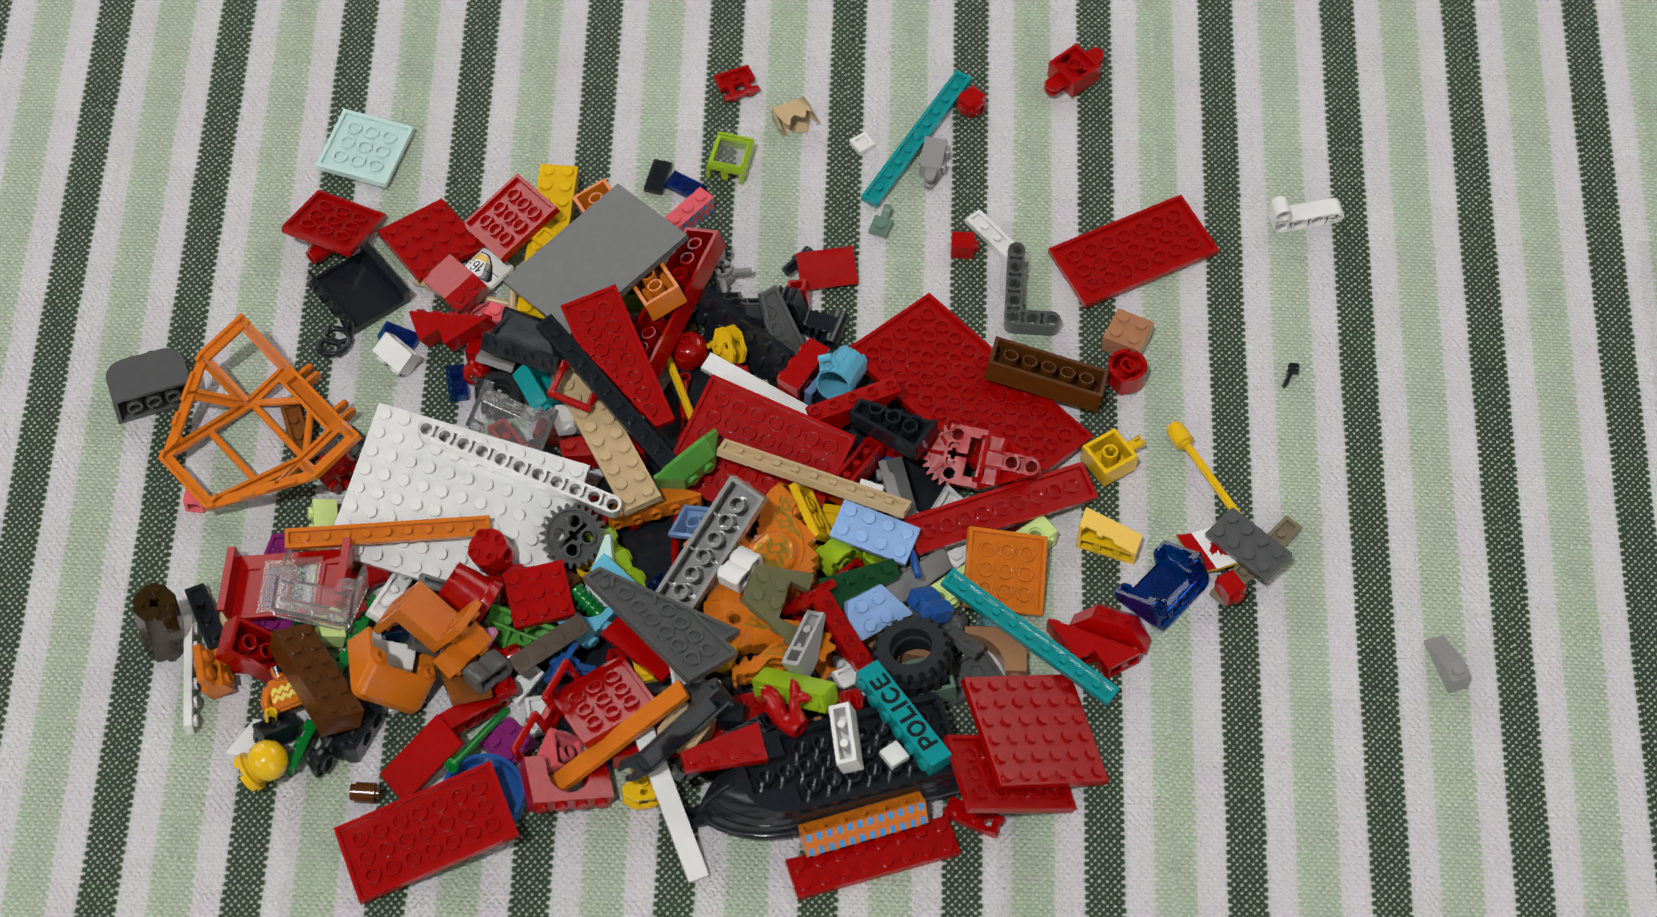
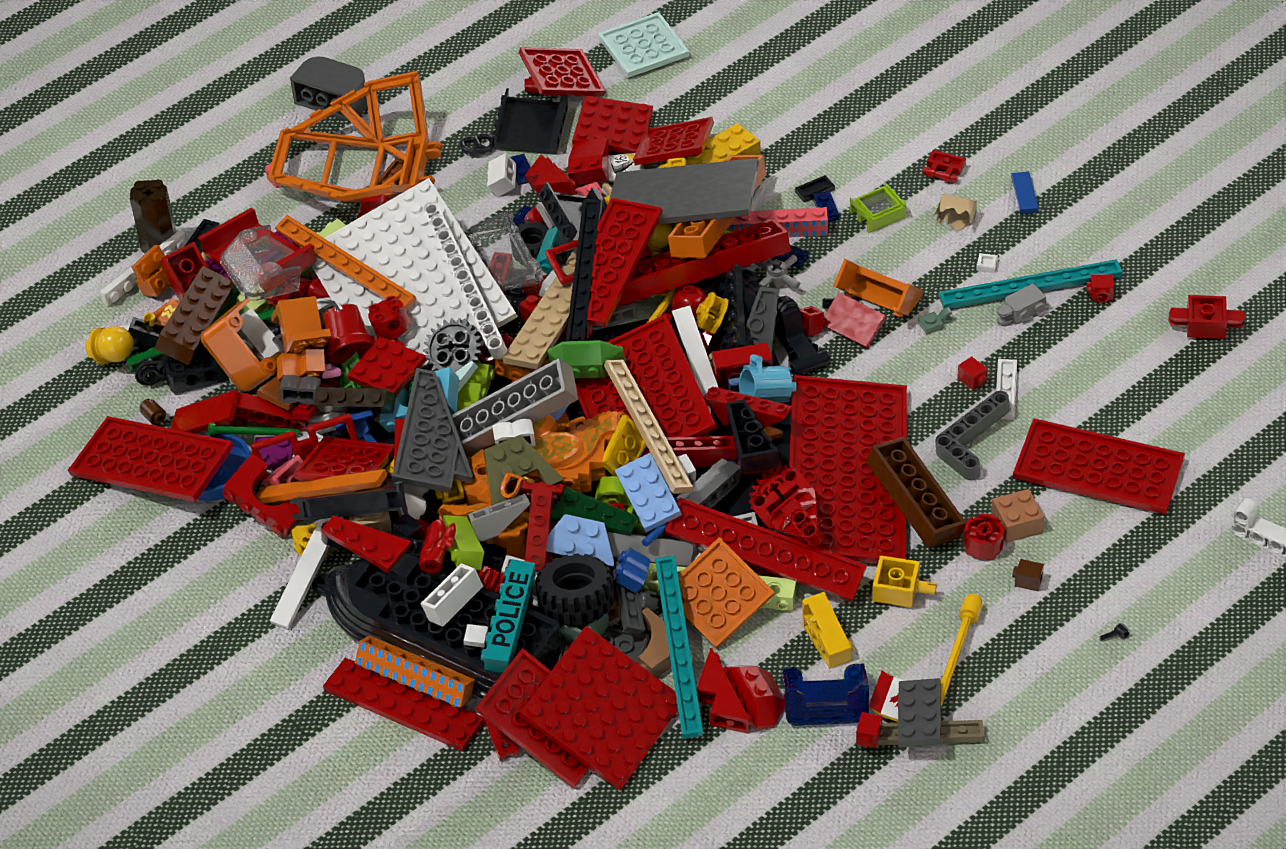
camera: 50 degrees right, 10 degrees down
(796, 597) = (505, 481): none -> orange piece
(820, 226) = (877, 288): none -> orange windscreen
(821, 62) = (1024, 192): none -> blue tile
(1187, 376) = (1028, 574): none -> reddish brown brick

